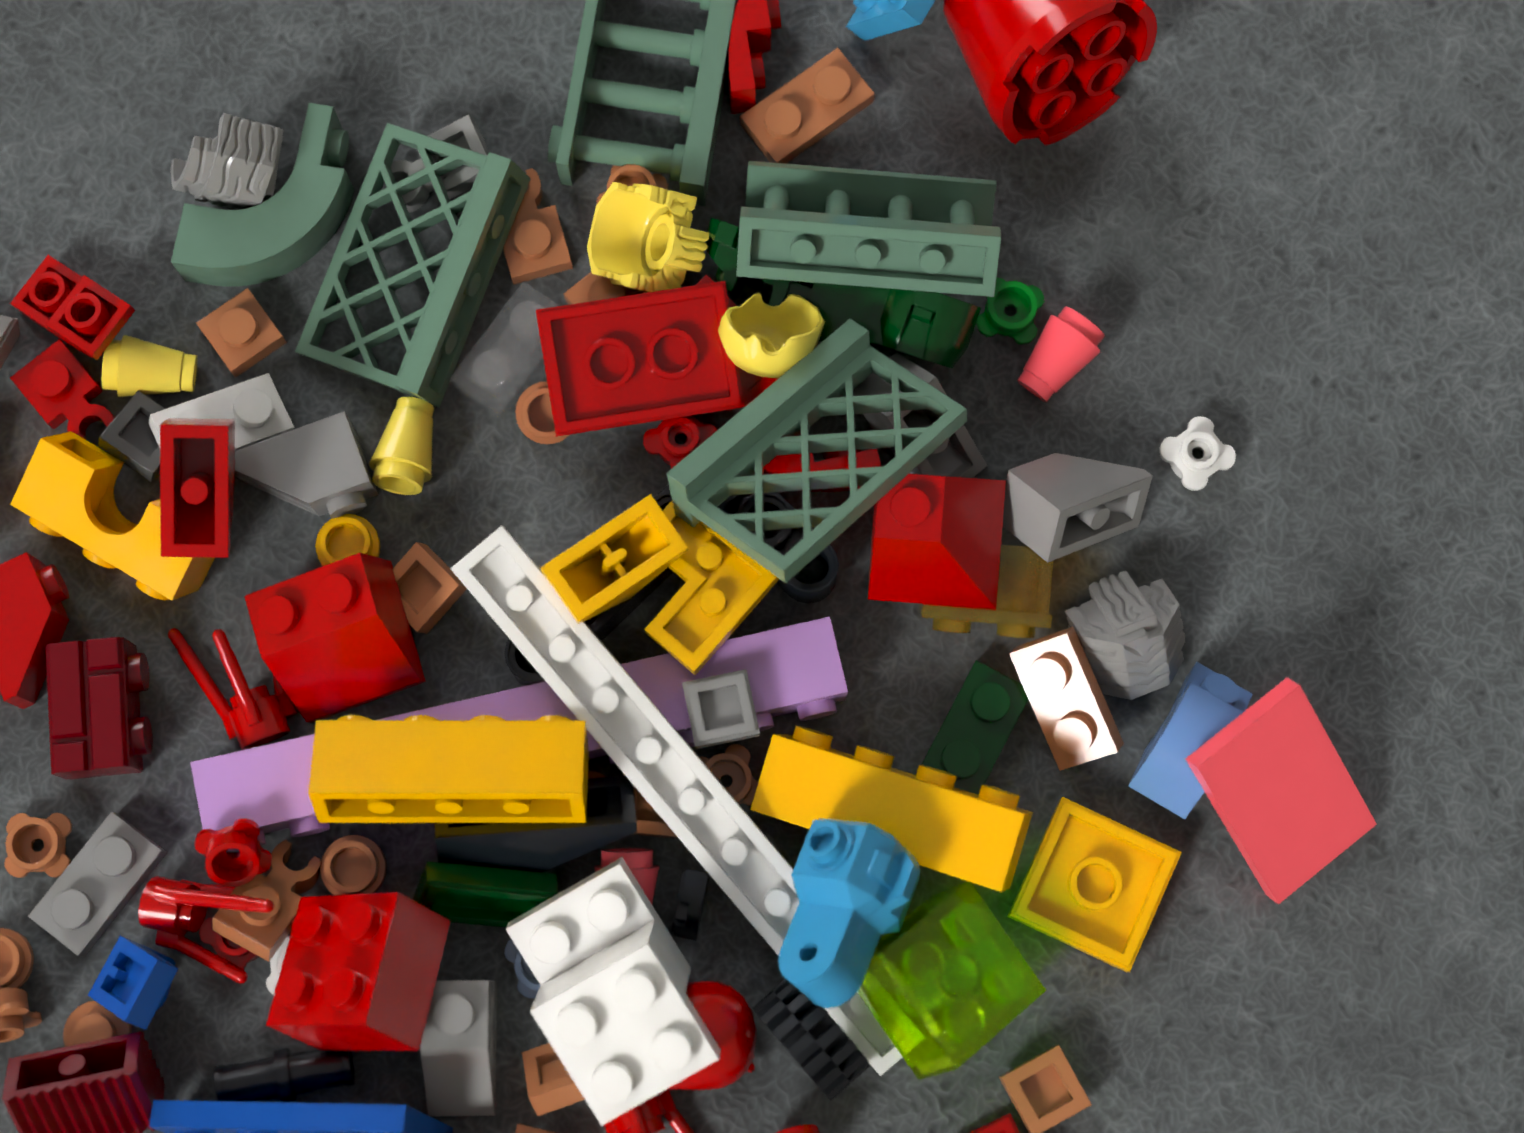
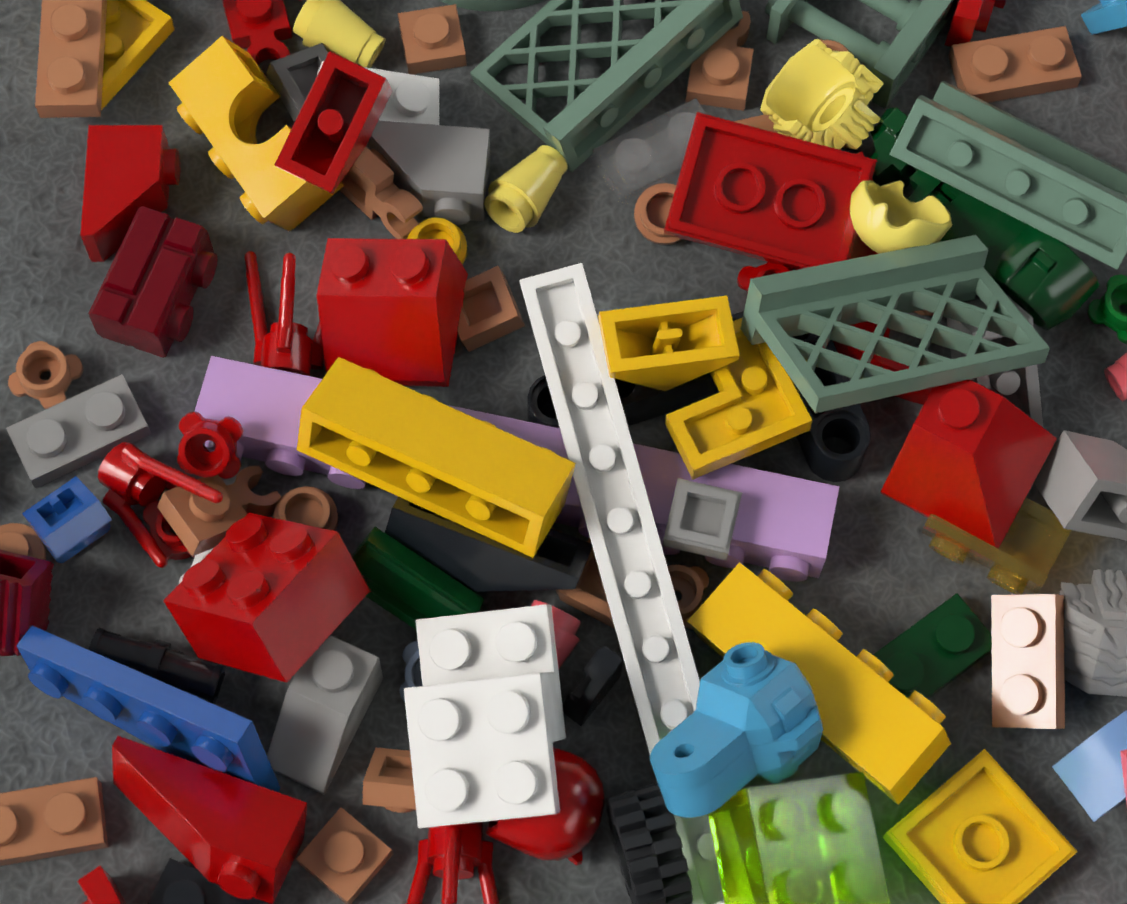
camera: 25 degrees right, 10 degrees down
(260, 517) = (372, 190): none -> nougat plate

